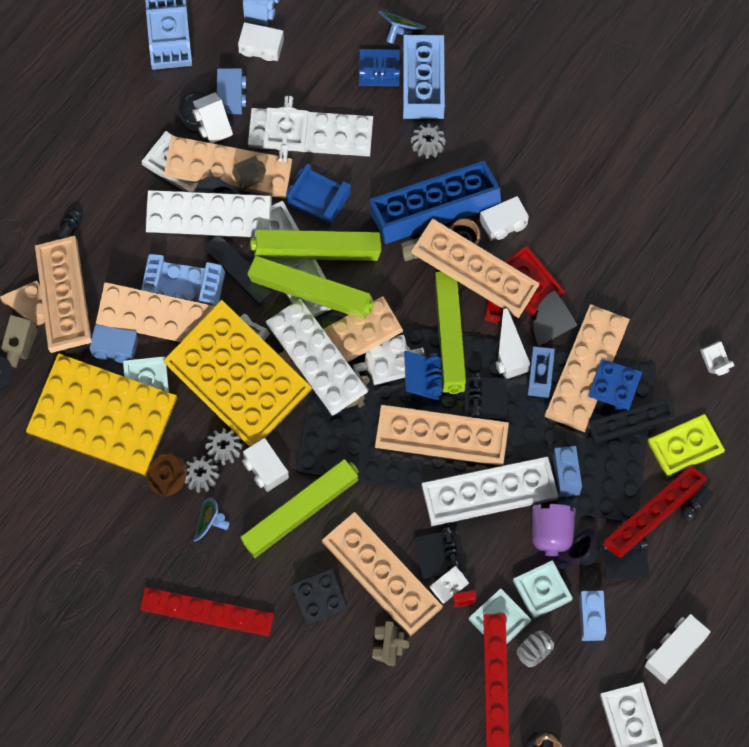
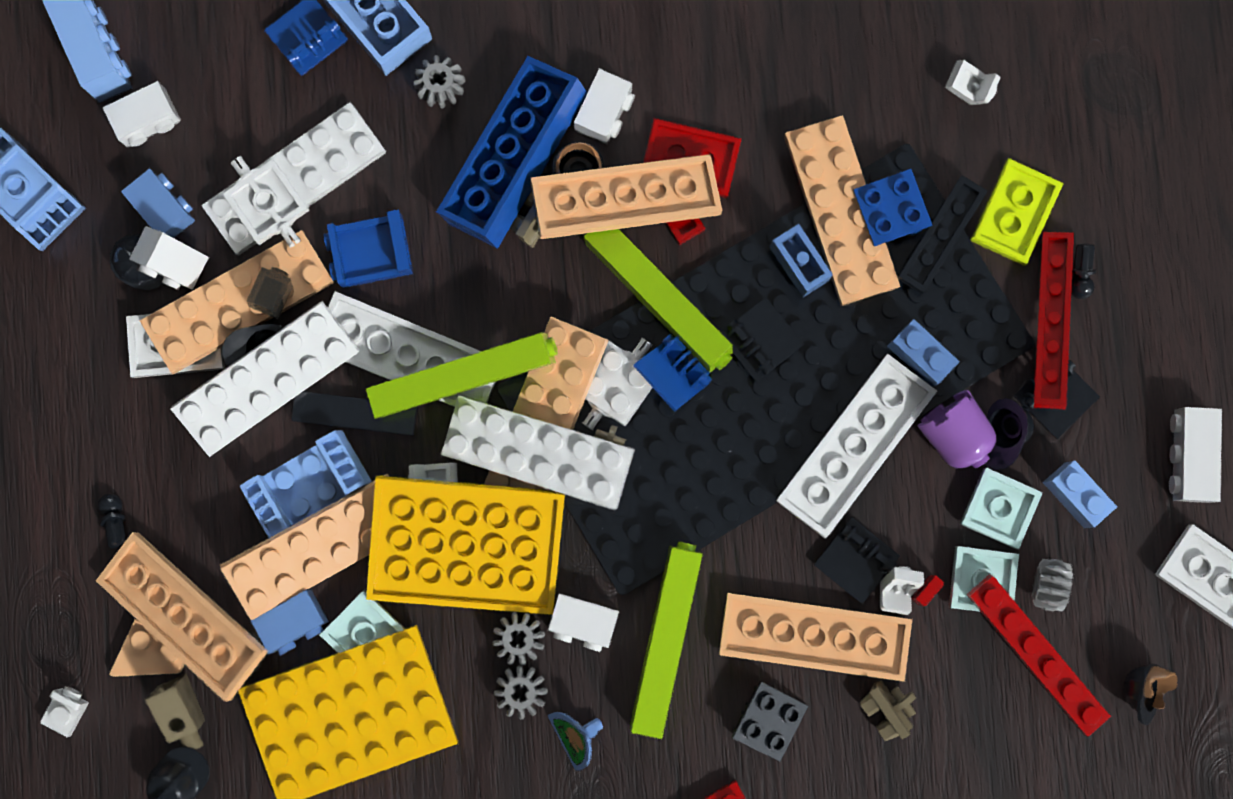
camera: 40 degrees left, 15 degrees up
(167, 474) = (484, 725): reddish brown tile -> none
(316, 245) = (421, 316): lime brick -> none
(442, 435) = (750, 424): light nougat plate -> none
(511, 354) = (744, 262): white slope -> none
(552, 319) = (756, 184): dark grey brick -> none

